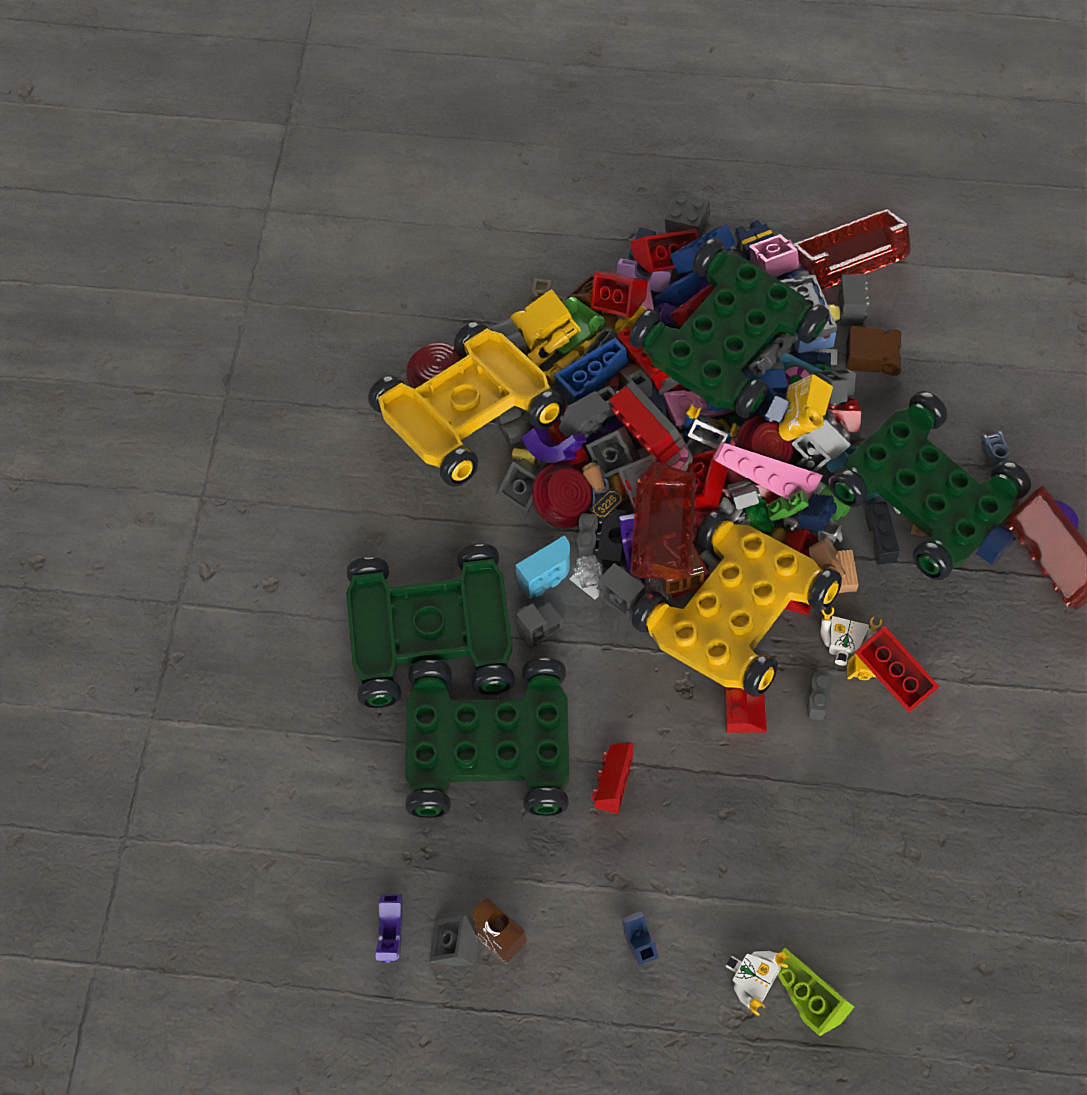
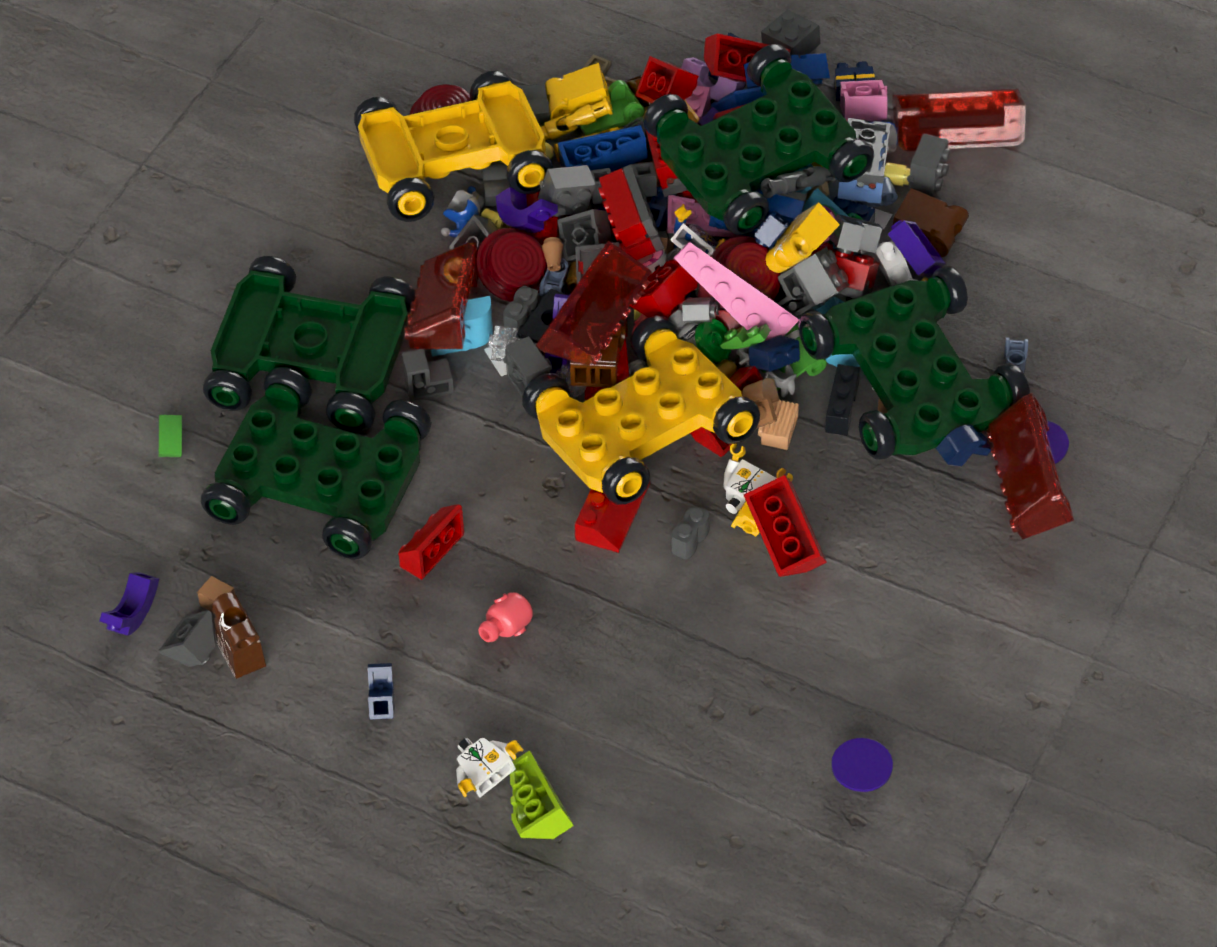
camera: 20 degrees right, 10 degrees down
(346, 750) = (170, 435): none -> bright green slope
(458, 893) = (211, 590): none -> medium nougat brick
(495, 456) = (461, 209): none -> piece
(524, 549) = (442, 299): none -> clear red windscreen
(607, 503) = (555, 285): black sticker -> none
(708, 829) = (506, 617): none -> coral piece
(871, 400) = (893, 264): none -> white torso
(881, 379) = (916, 248): none -> dark purple window
(1056, 865) = (862, 764): none -> dark purple piece

